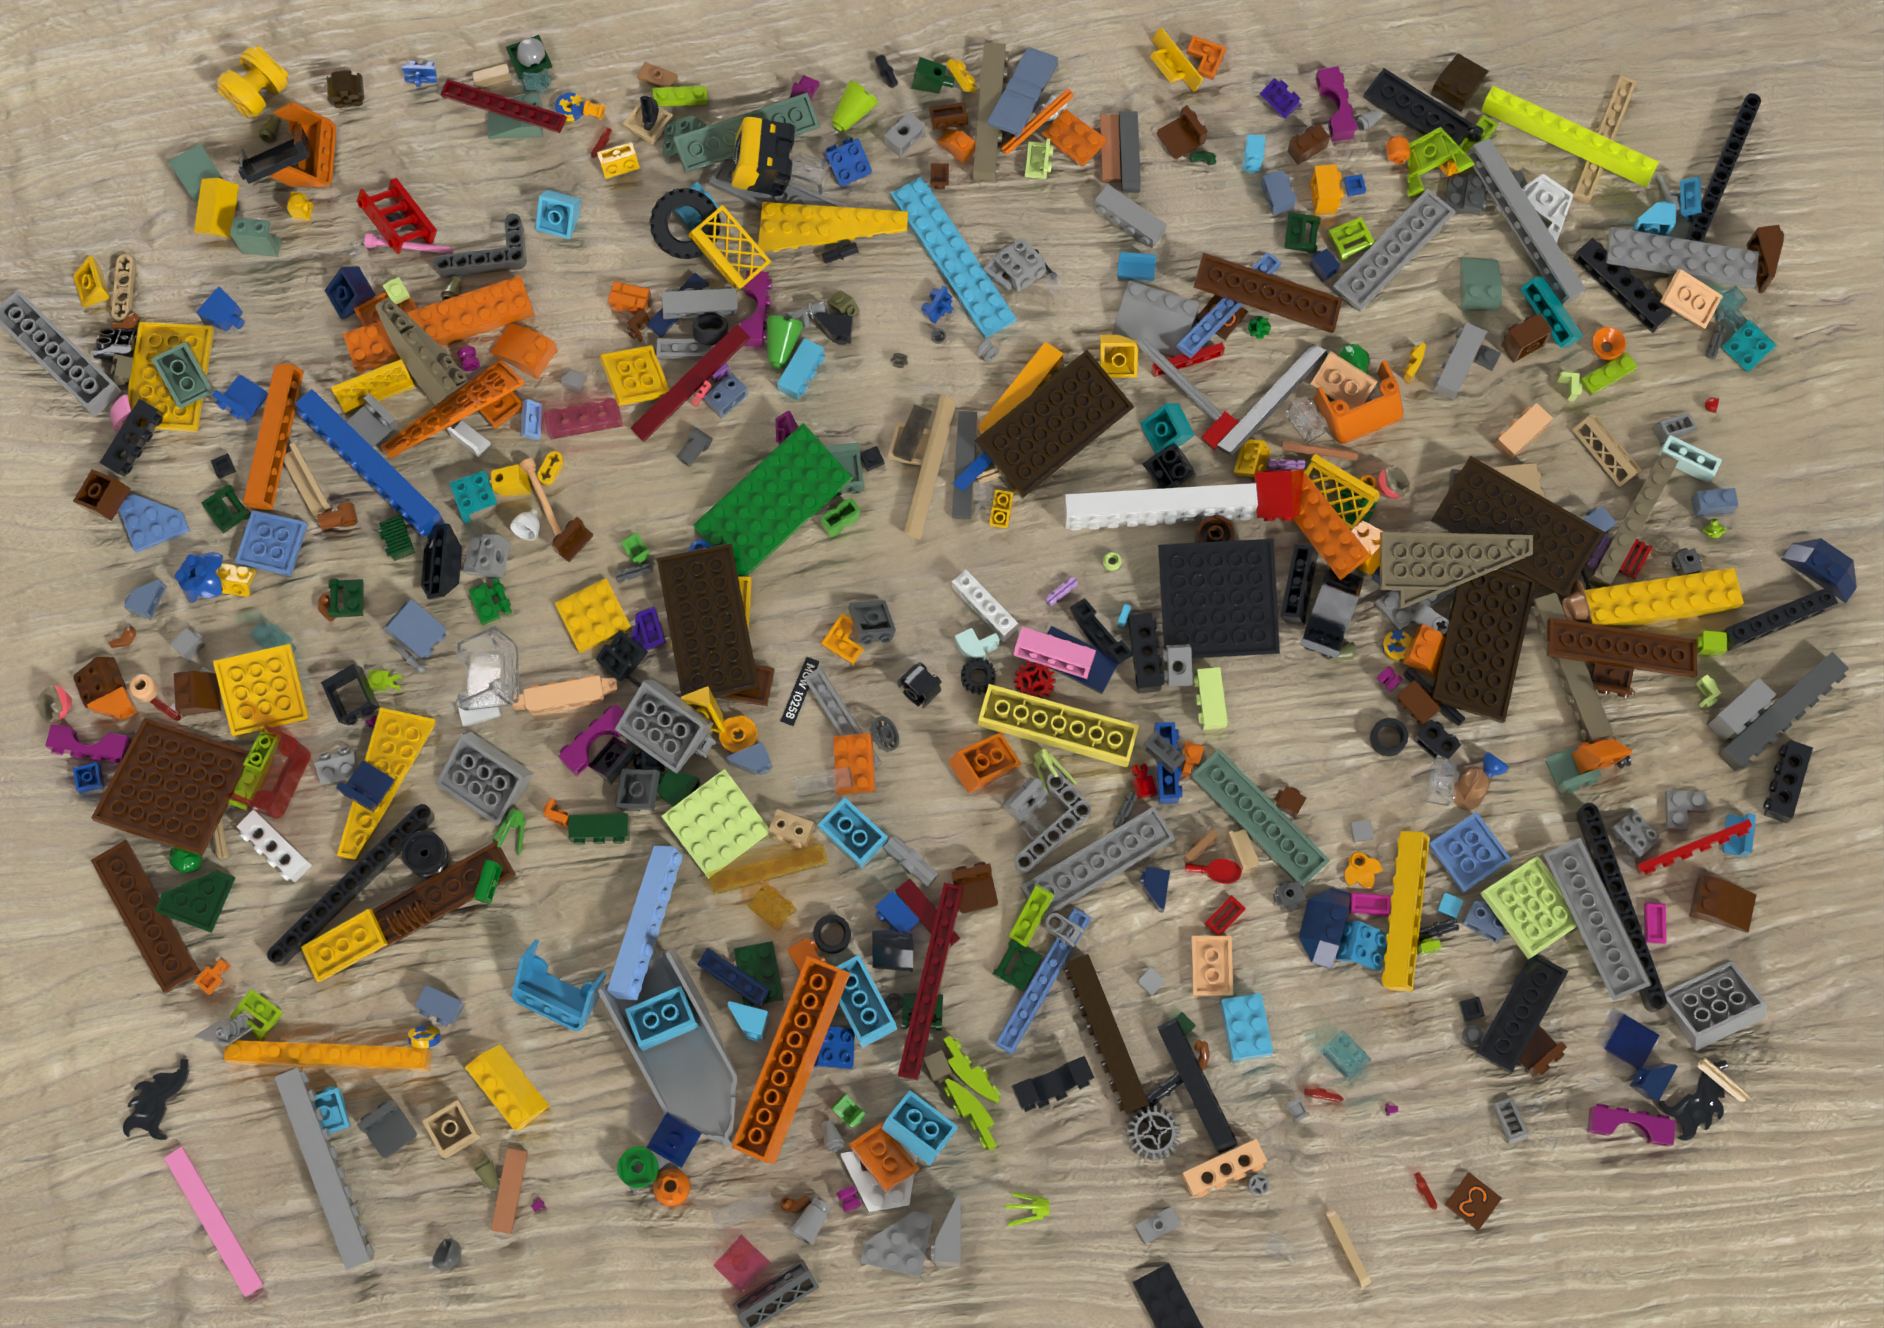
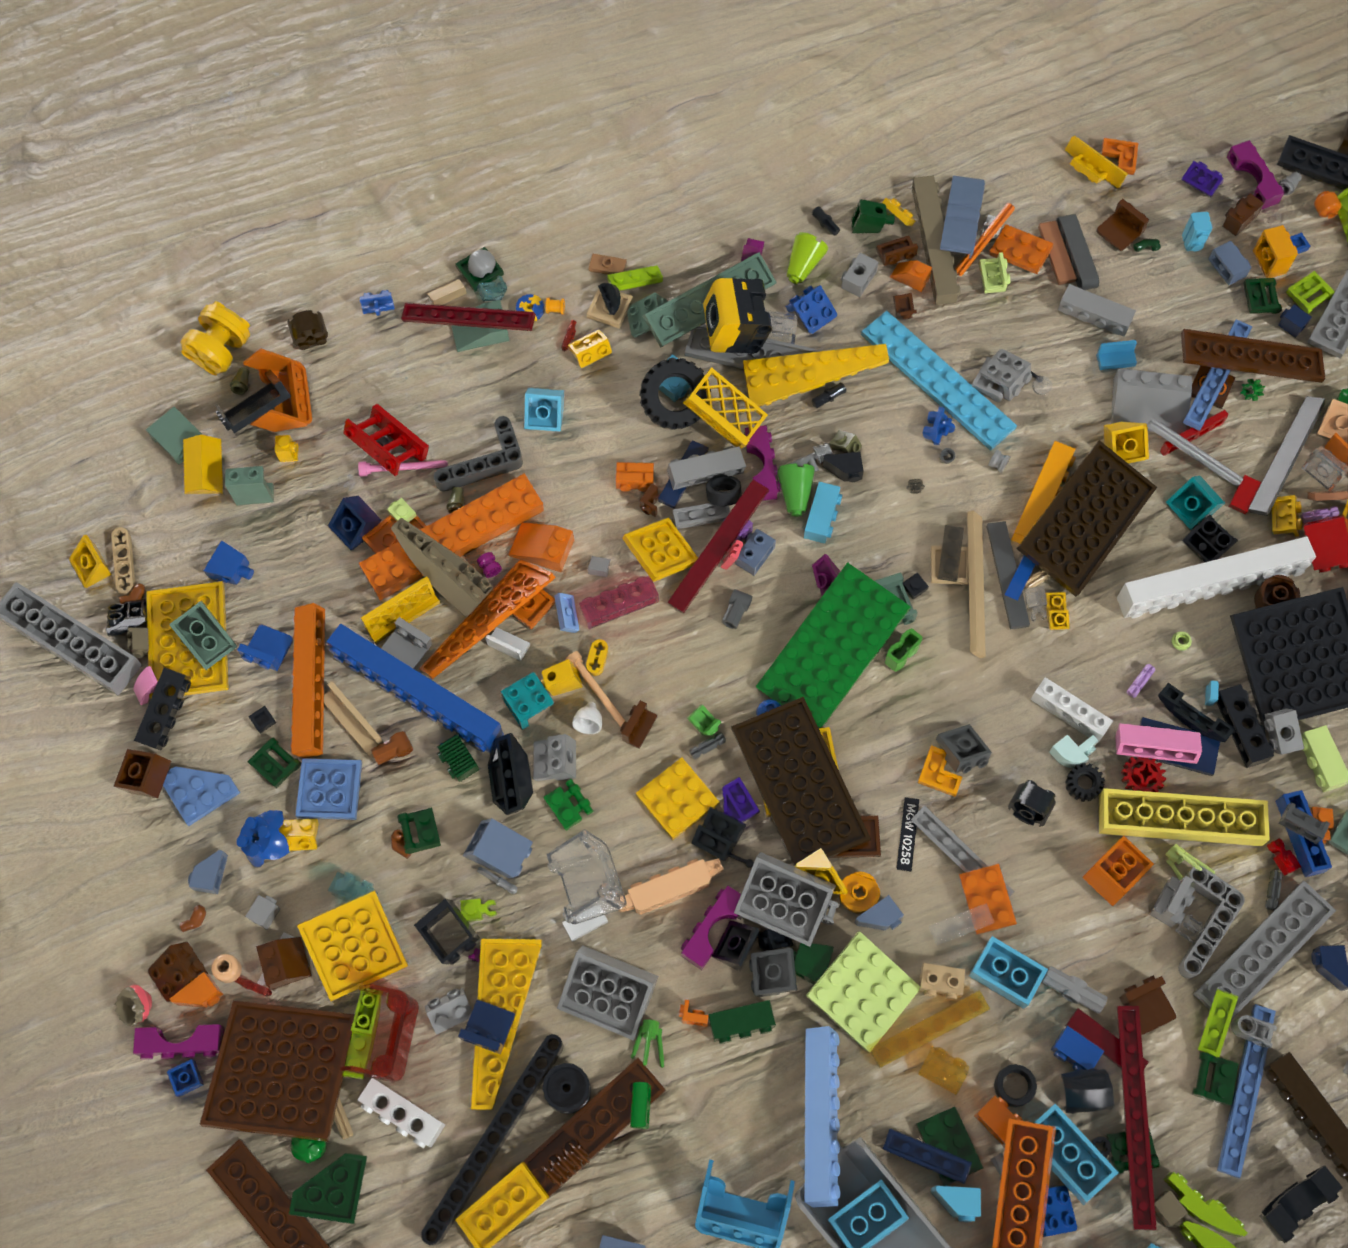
camera: 10 degrees left, 5 degrees down
(884, 733) = (1010, 861): dark grey wheel -> none

